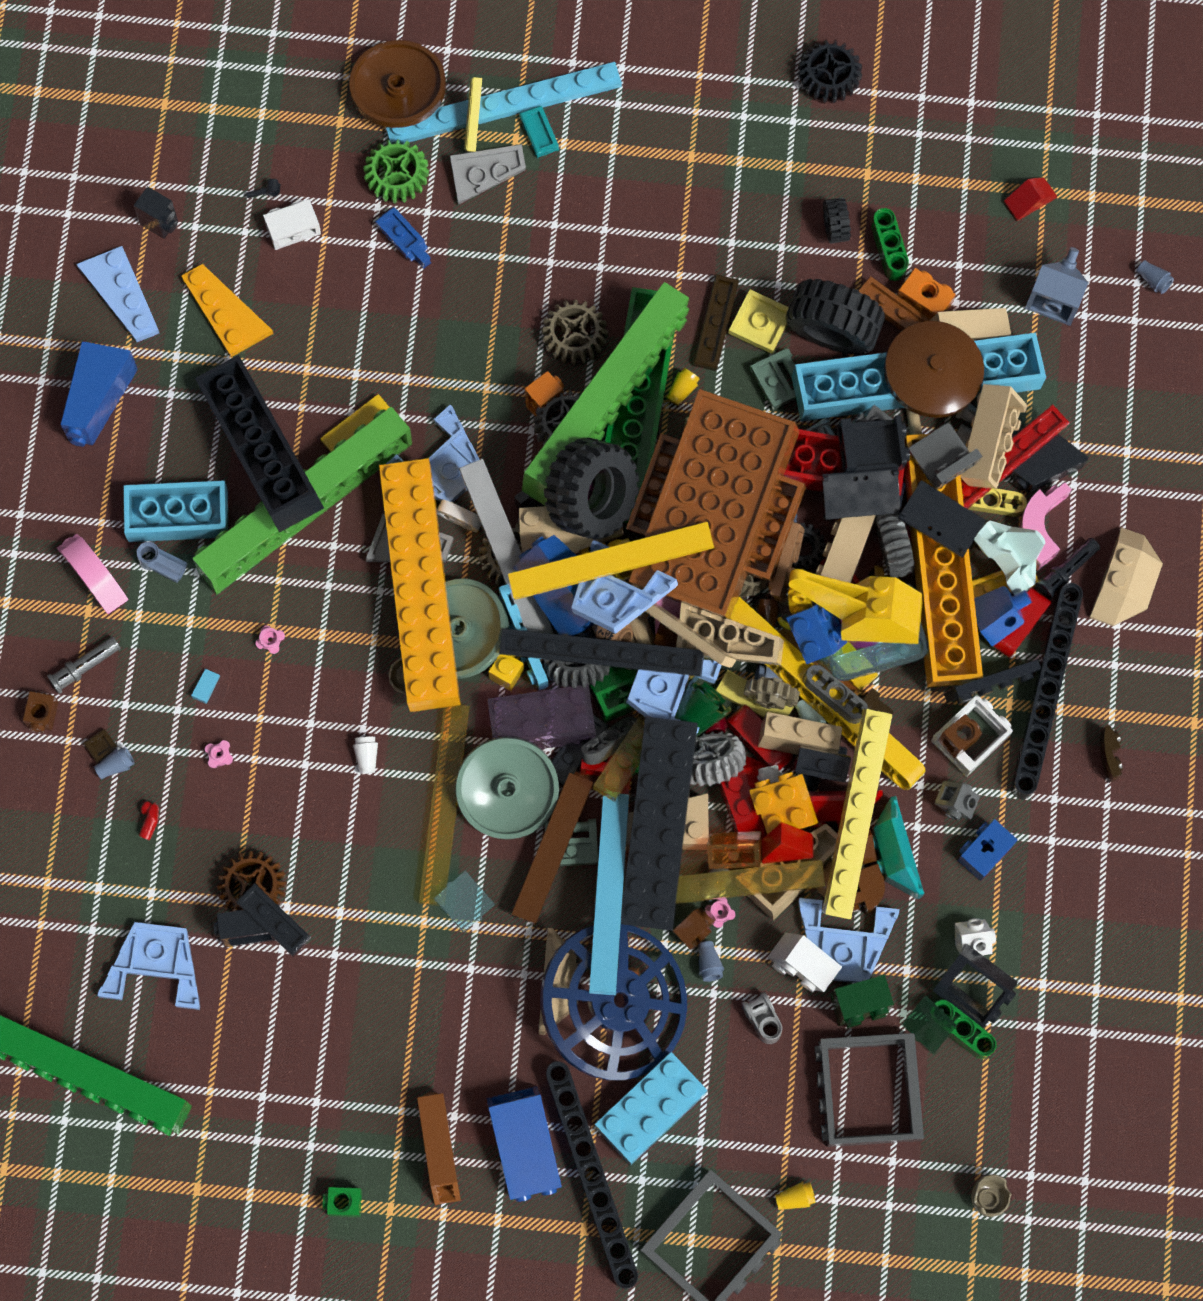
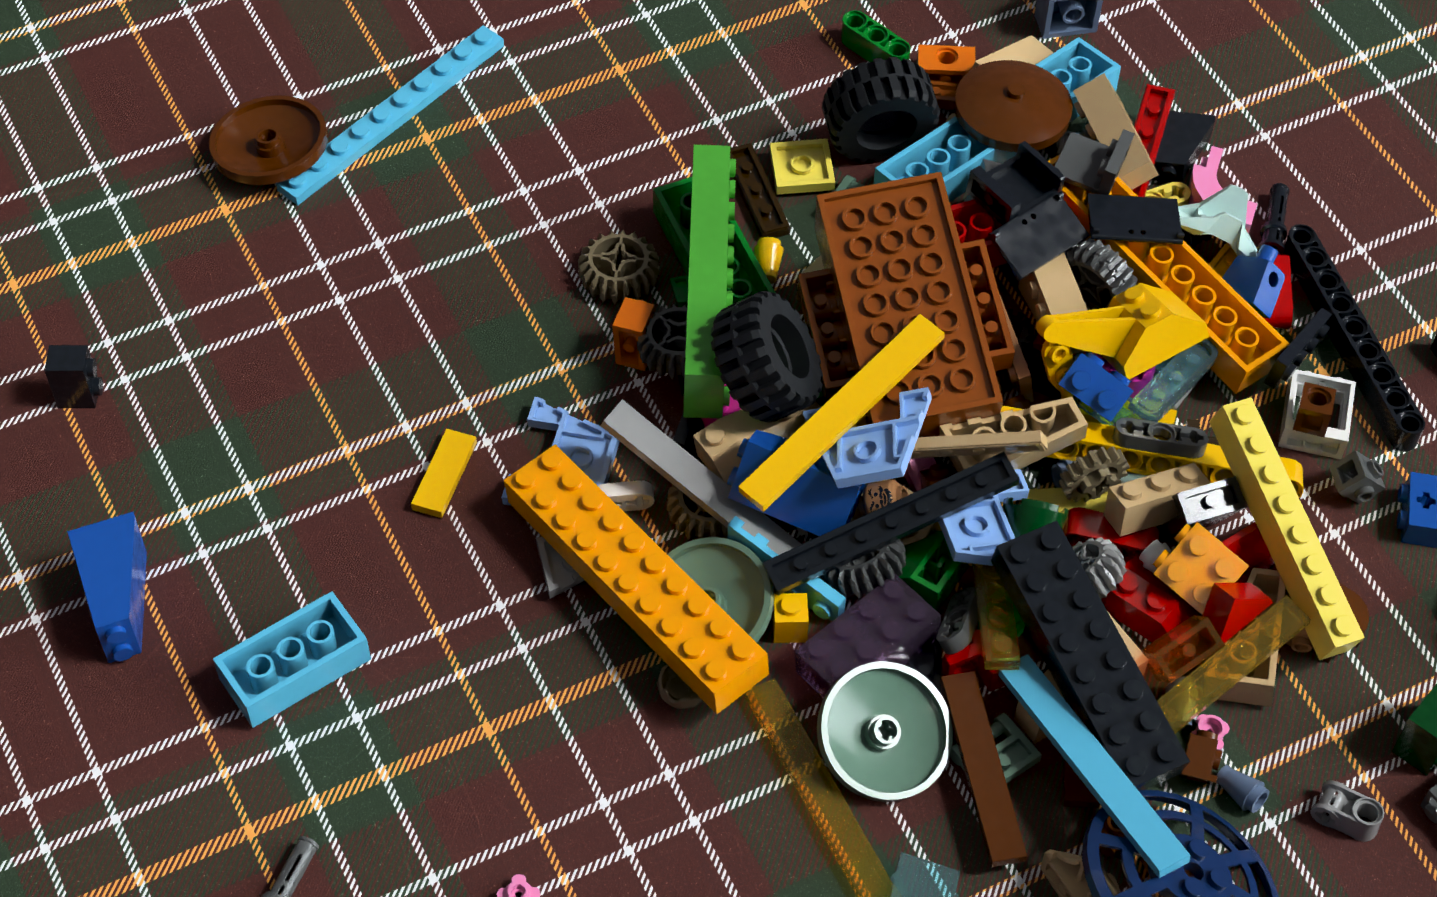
camera: 30 degrees left, 20 degrees down
(92, 573) = (233, 773): bright pink arch -> none
(118, 286) = (74, 477): light blue wing -> none
(162, 563) = (308, 725): sand blue piece -> none
(205, 686) = (450, 832): medium azure piece -> none
(229, 317) = (217, 441): light orange wing -> none
(259, 443) = (353, 525): black brick -> none
(268, 632) = (490, 729): bright pink plate -> none
(272, 189) = (190, 302): black hand -> none
(292, 224) = (237, 319): white brick -> none
(332, 479) = (433, 572): bright green brick -> none
(366, 753) = (694, 794): white cone -> none
(386, 159) = (320, 218): bright green gear -> none
(404, 237) = (372, 272): blue hinge -> none
(473, 114) = (370, 126): light yellow tile -> none
(485, 169) = (415, 174): light grey wing -> none
(539, 131) = (448, 118): teal tile -> none
(802, 958) = (1342, 715): white brick -> none
(836, 220) = (809, 44): black tyre -> none
(852, 950) = (1367, 696): light blue wing -> none
(895, 852) = (1355, 562): teal wedge -> none
(1127, 579) = (1337, 204): tan wedge -> none

